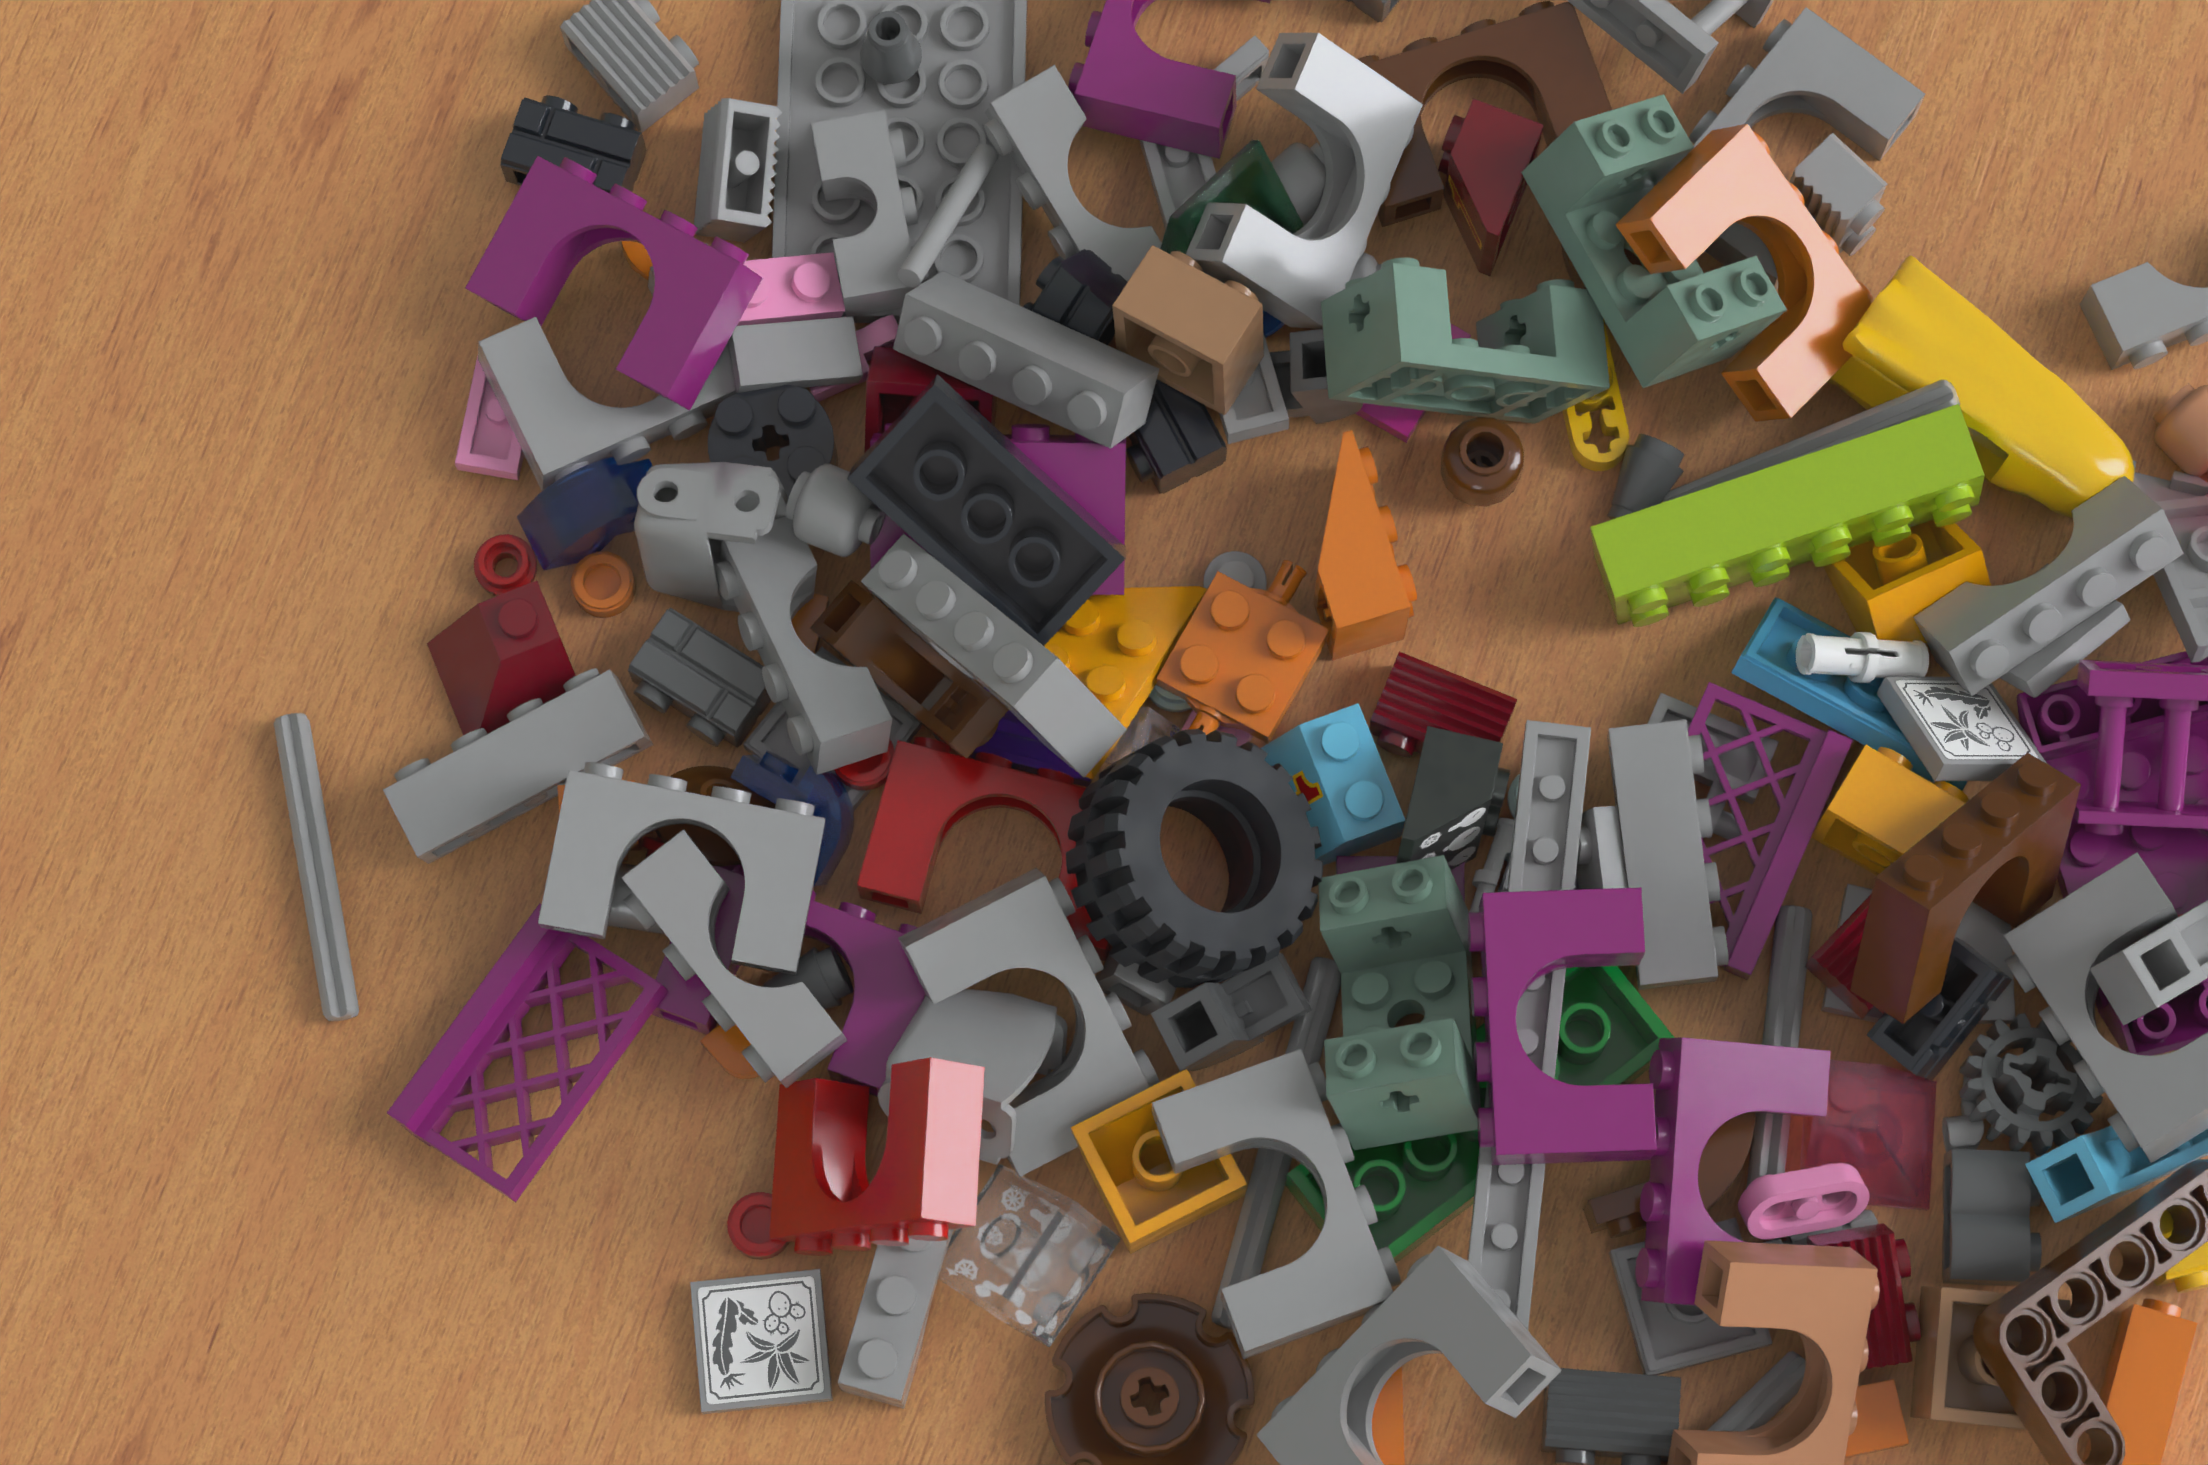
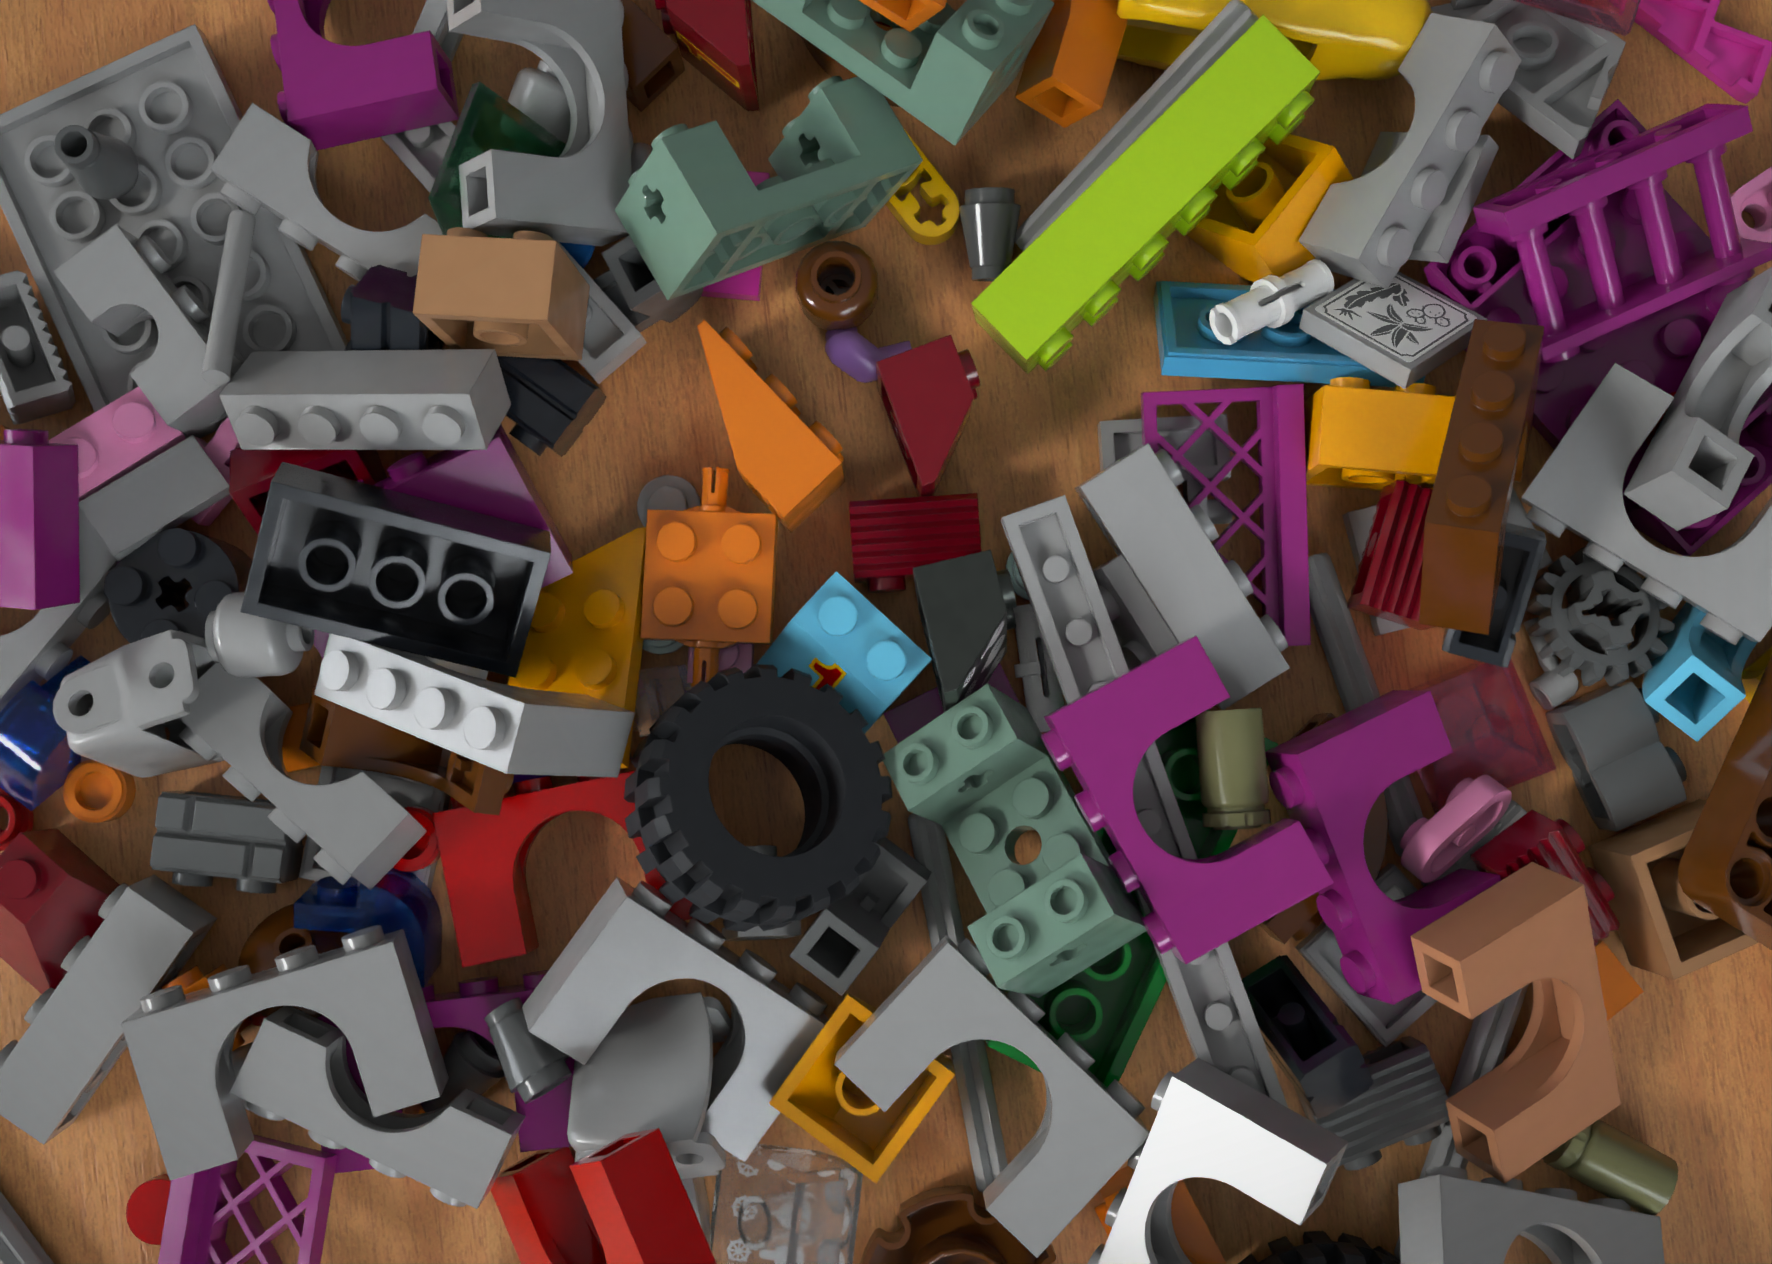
camera: 25 degrees left, 10 degrees up
(467, 968) = (148, 1209): none -> red tile
(882, 979) = (526, 1060): none -> dark grey cone
(1475, 540) = (857, 355): none -> medium lavender arm
(1511, 604) = (928, 406): none -> dark red slope
(1573, 1308) = (1306, 1037): none -> black brick
(1623, 1028) = (1232, 768): none -> olive piece

